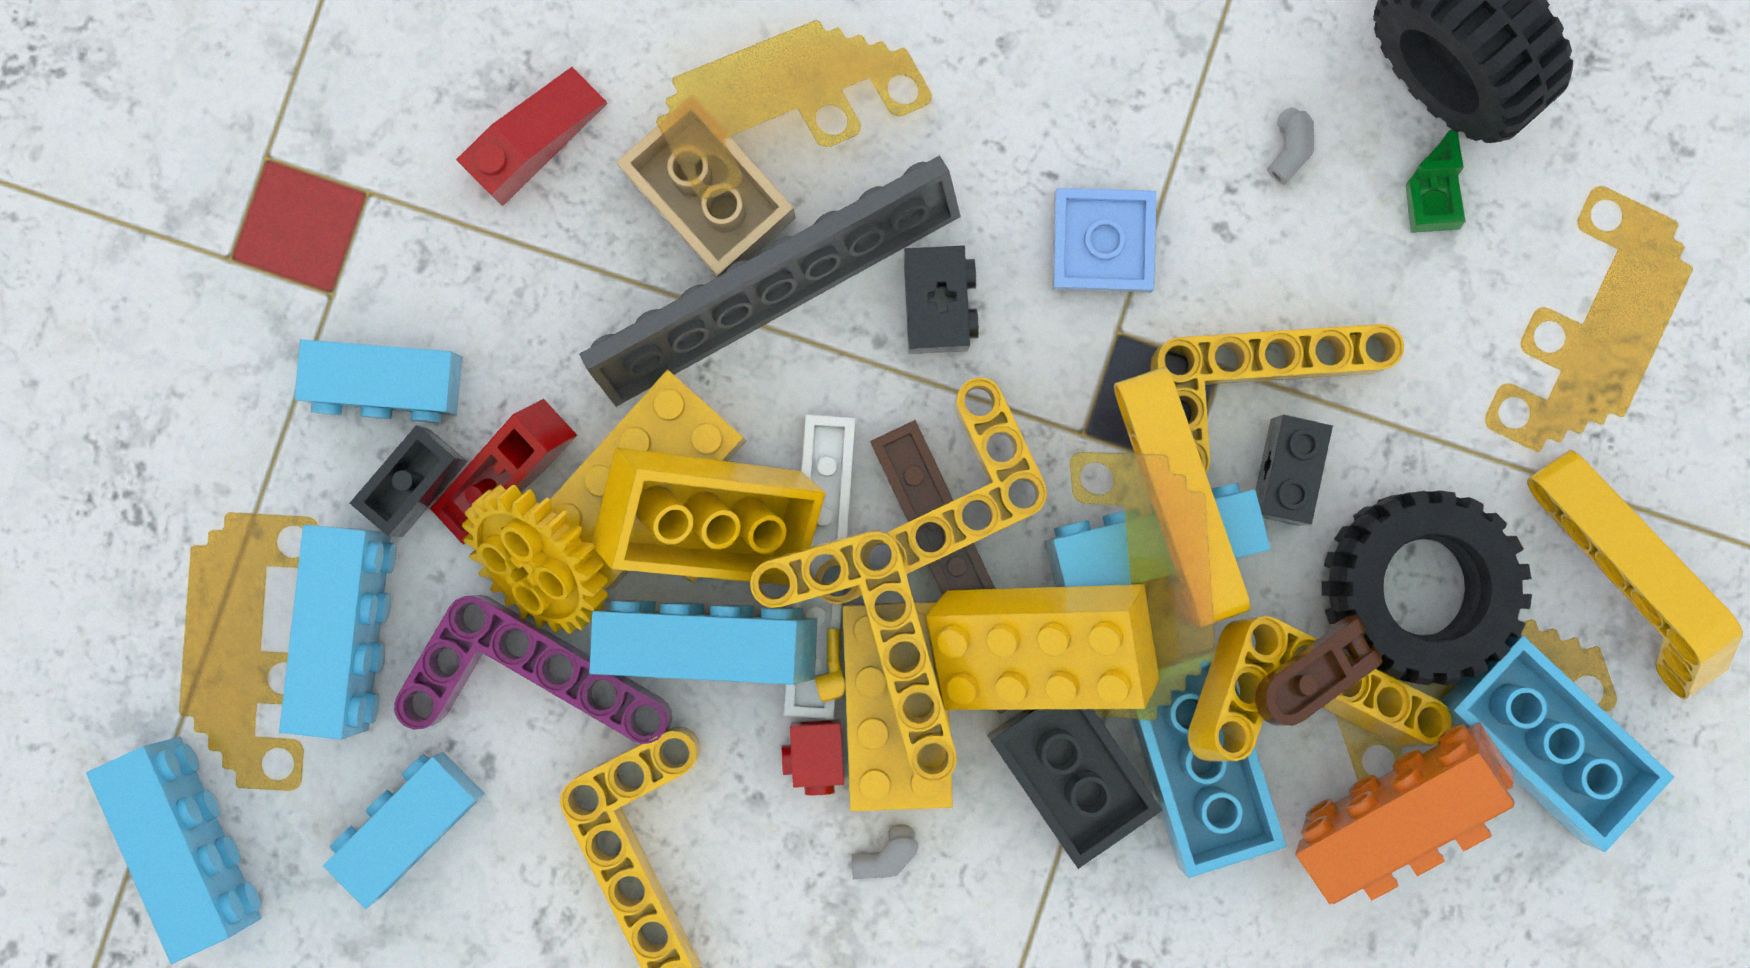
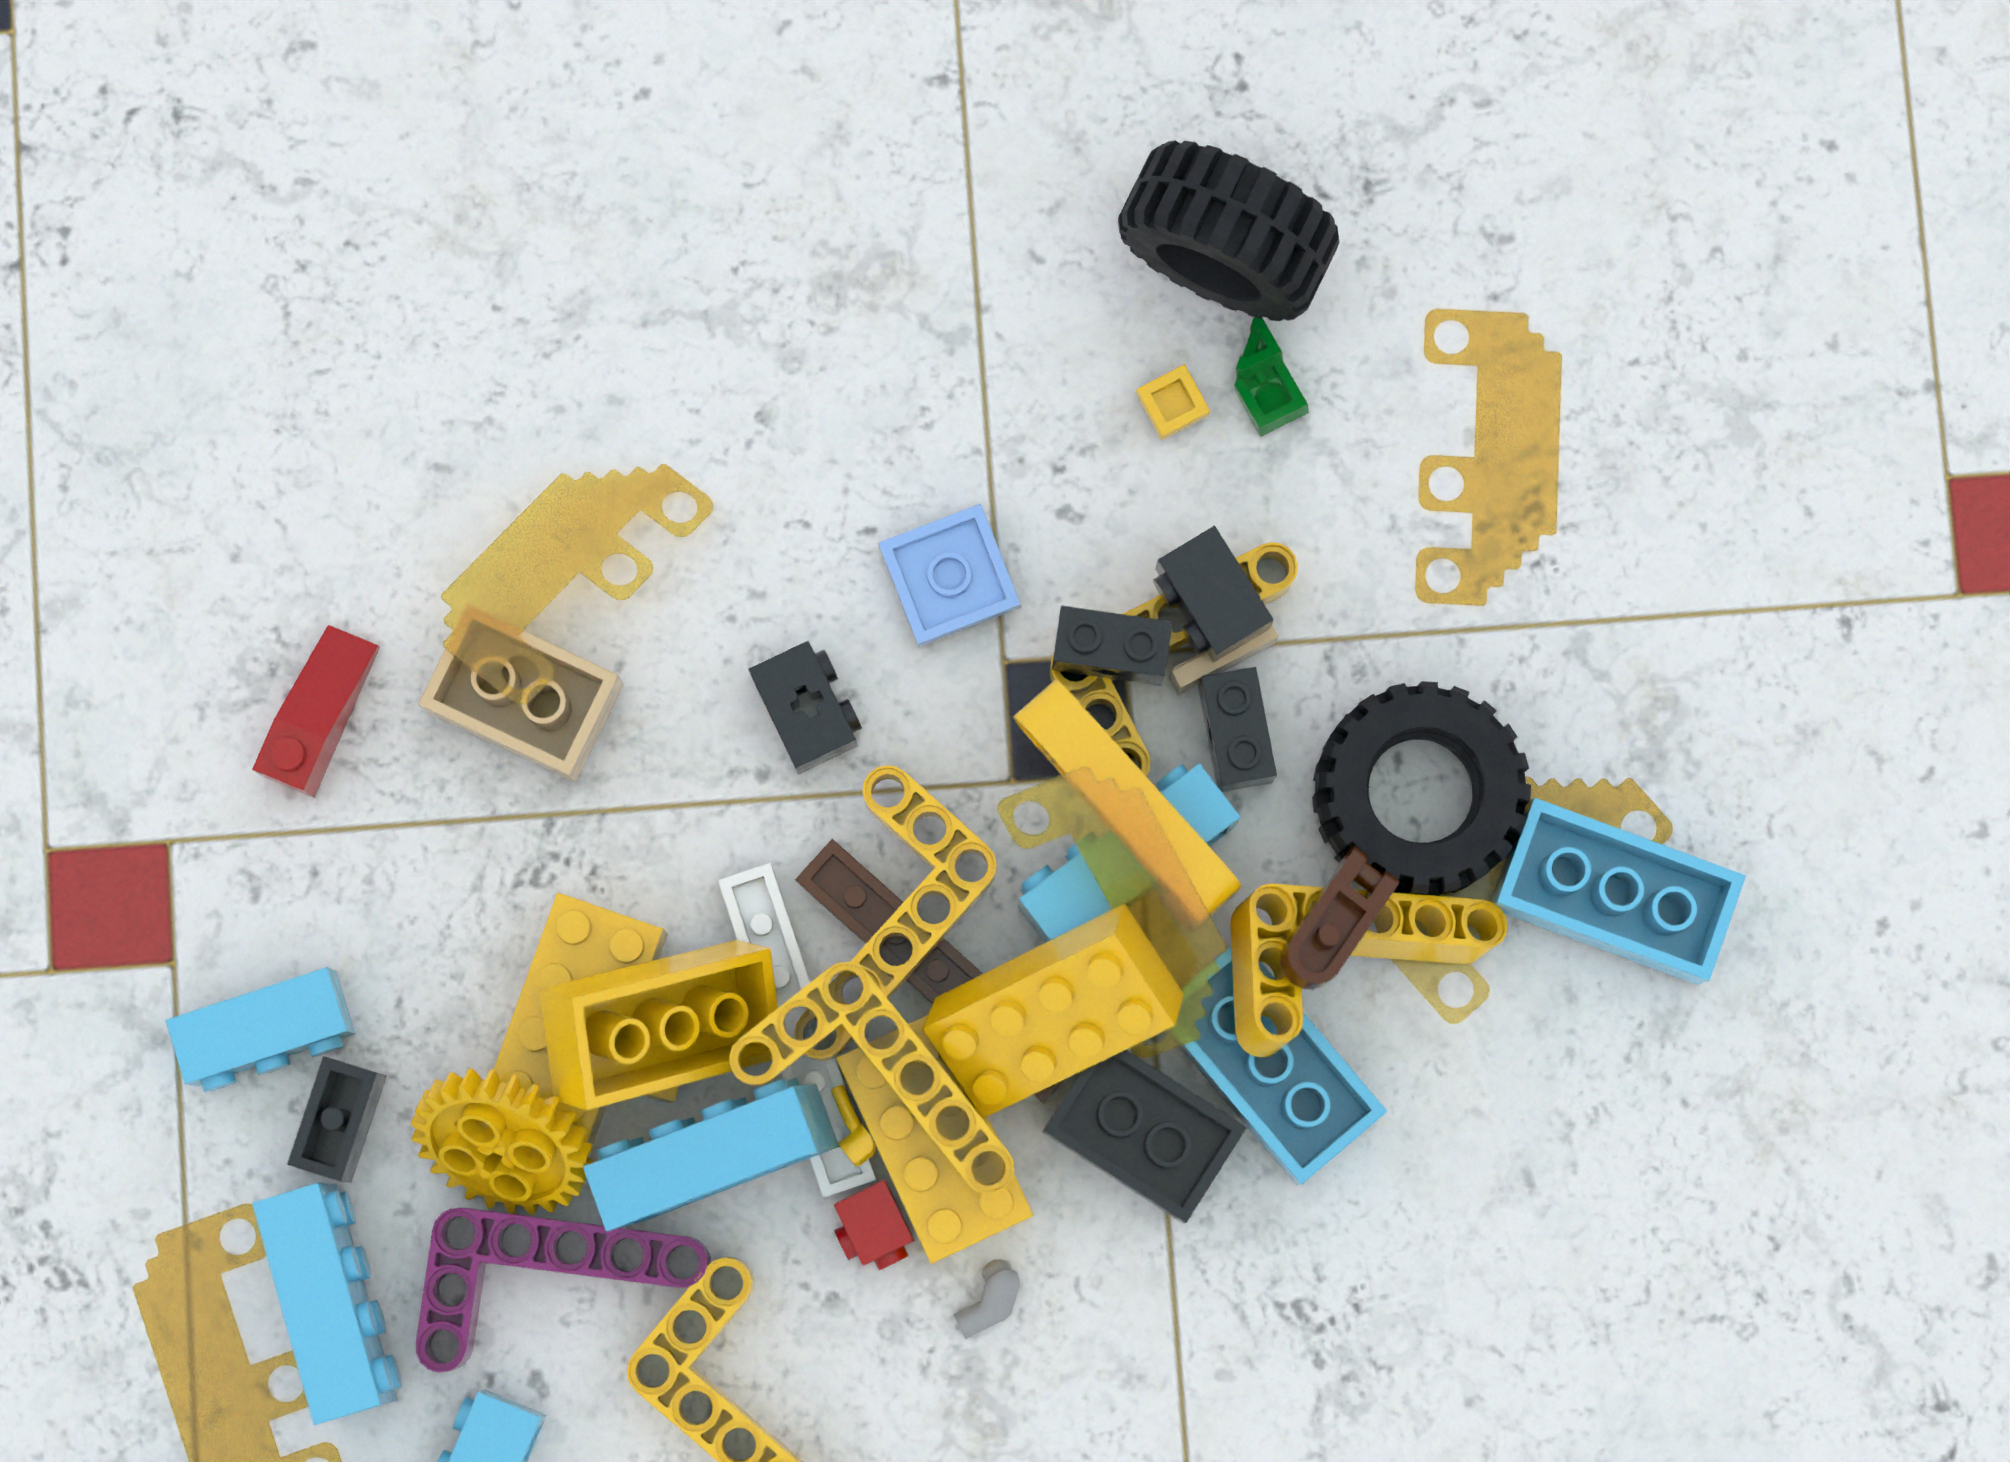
camera: 20 degrees left, 5 degrees down
(511, 457) = (434, 1046): red slope -> none
(773, 281) = (628, 759): dark grey plate -> none
(1221, 357) = (1112, 645): none -> black brick
(1299, 144) = (1107, 394): light grey arm -> none
(1305, 403) = (1188, 673): none -> tan tile
(1323, 349) = (1212, 595): none -> black brick
(1352, 172) = (1172, 402): none -> yellow plate
(1407, 815) = (1492, 1028): orange piece -> none
(1694, 623) = (1693, 714): yellow beam -> none

